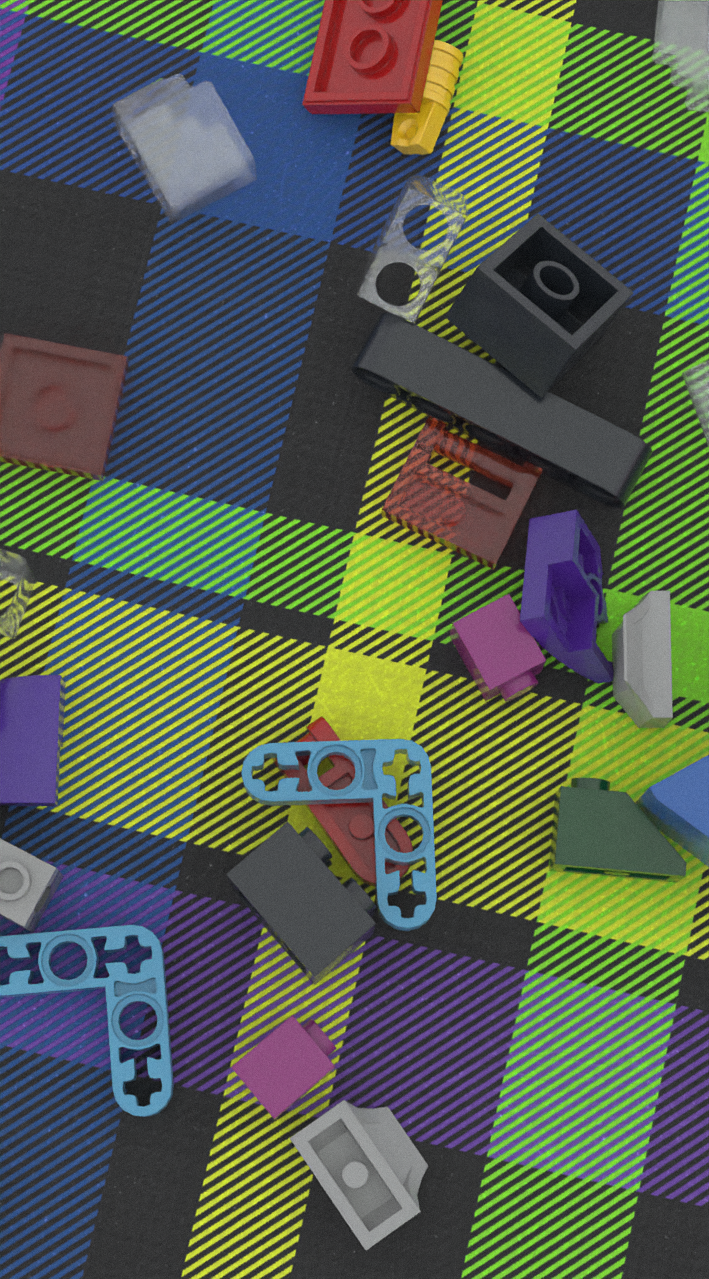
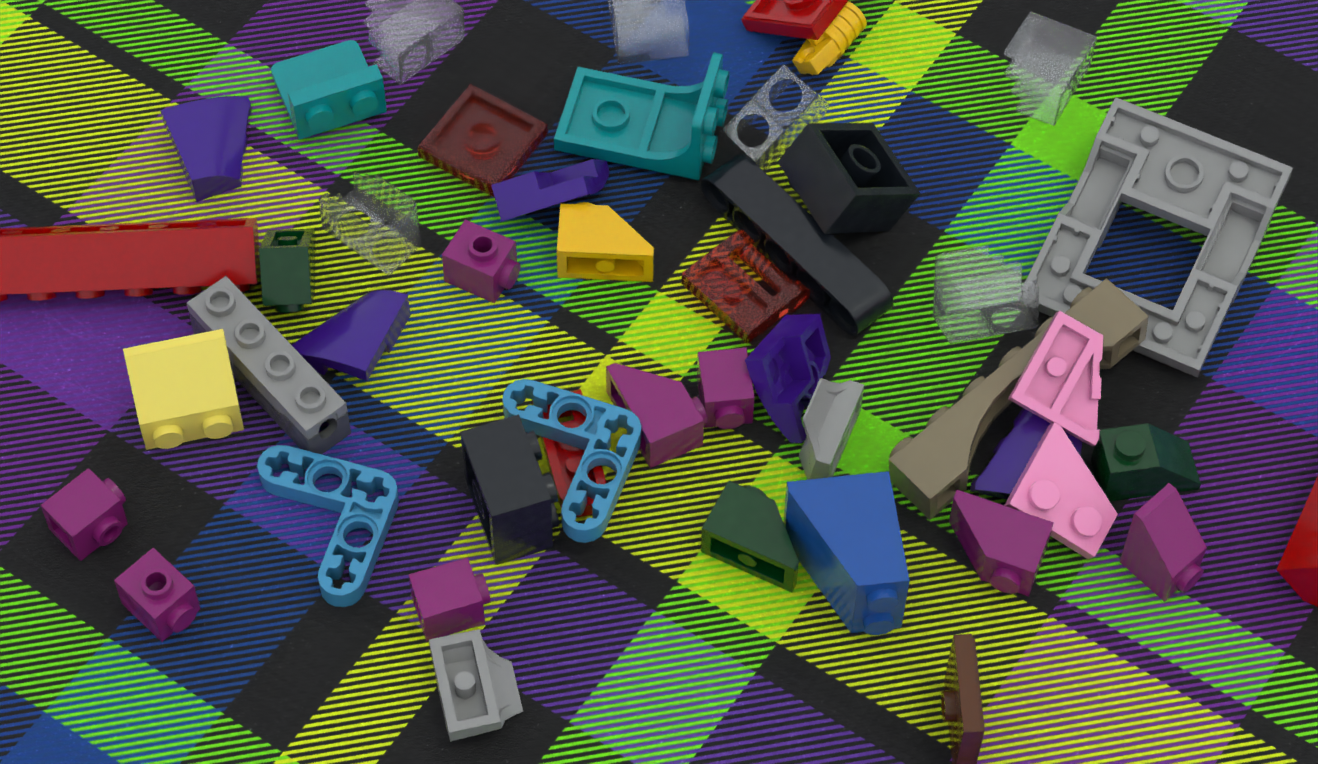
camera: 25 degrees right, 20 degrees down
(128, 586) = (480, 261): none -> magenta brick
(172, 451) = (546, 189): none -> dark purple slope
(246, 304) = (645, 120): none -> teal bracket
(263, 504) = (601, 245): none -> yellow slope
(431, 711) = (668, 416): none -> magenta slope

